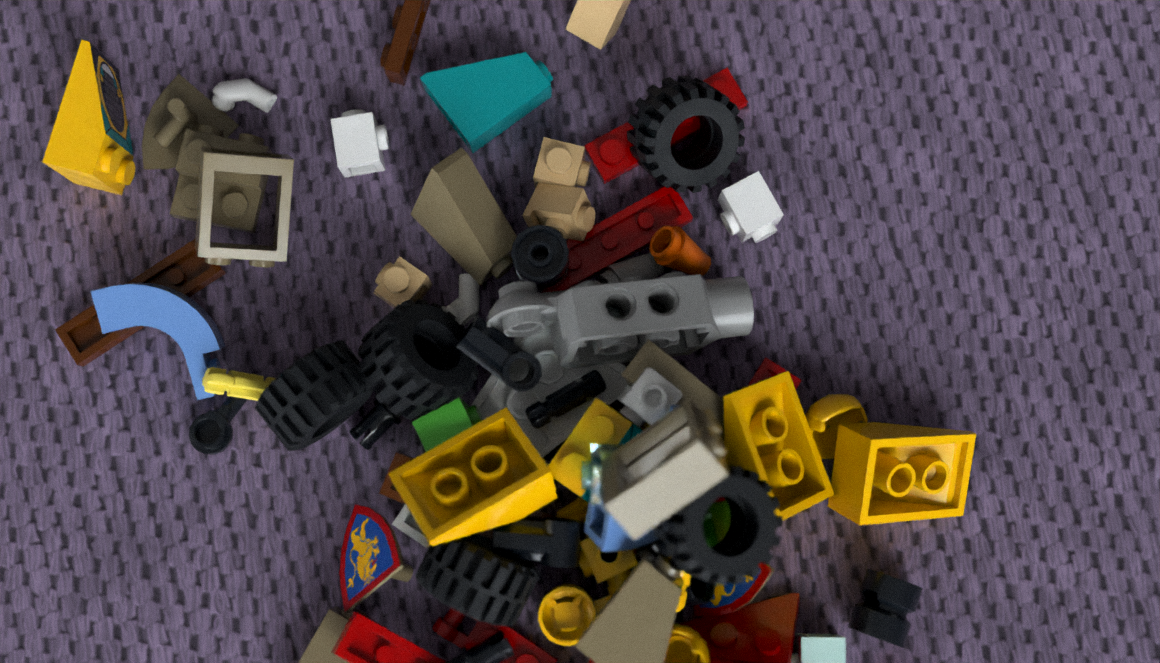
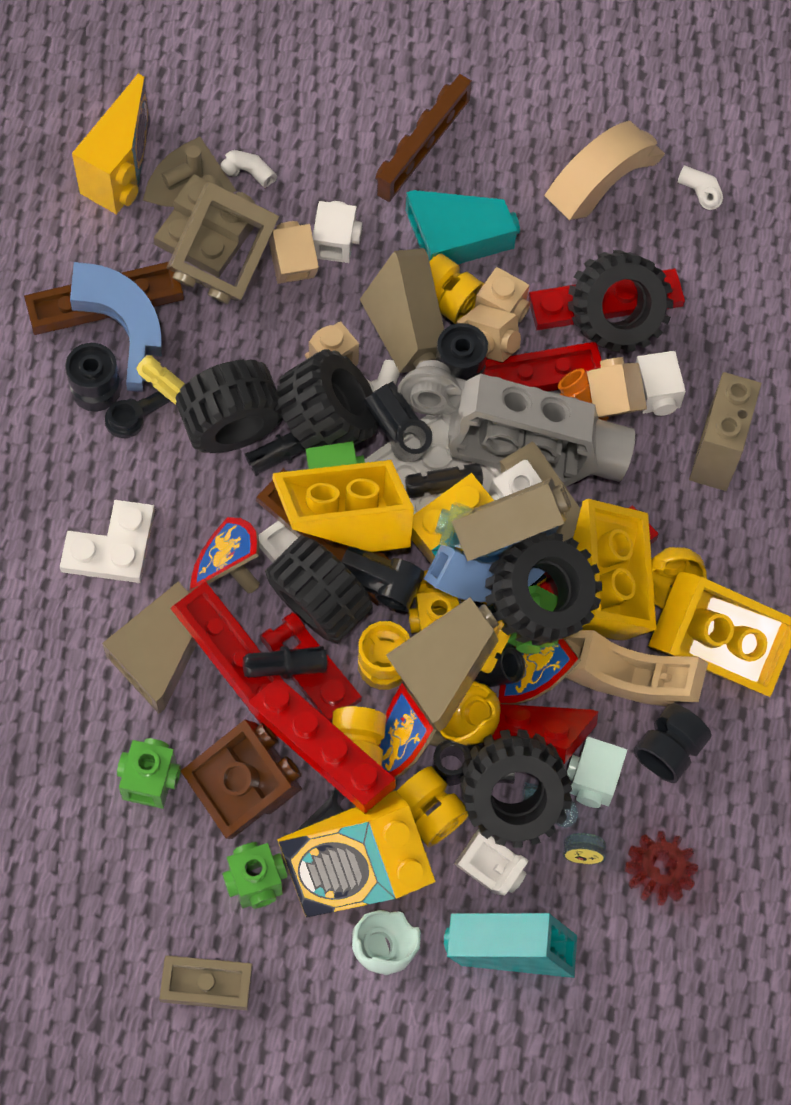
camera: 15 degrees right, 15 degrees down
(170, 406) = (93, 376): none -> black wheel
(256, 586) = (119, 553): none -> white plate
(322, 184) = (293, 252): none -> tan brick
(490, 160) = (454, 290): none -> yellow wheel
(713, 238) = (616, 388): none -> tan brick
(836, 263) = (725, 431): none -> dark tan window
(837, 546) = (635, 674): none -> tan arch

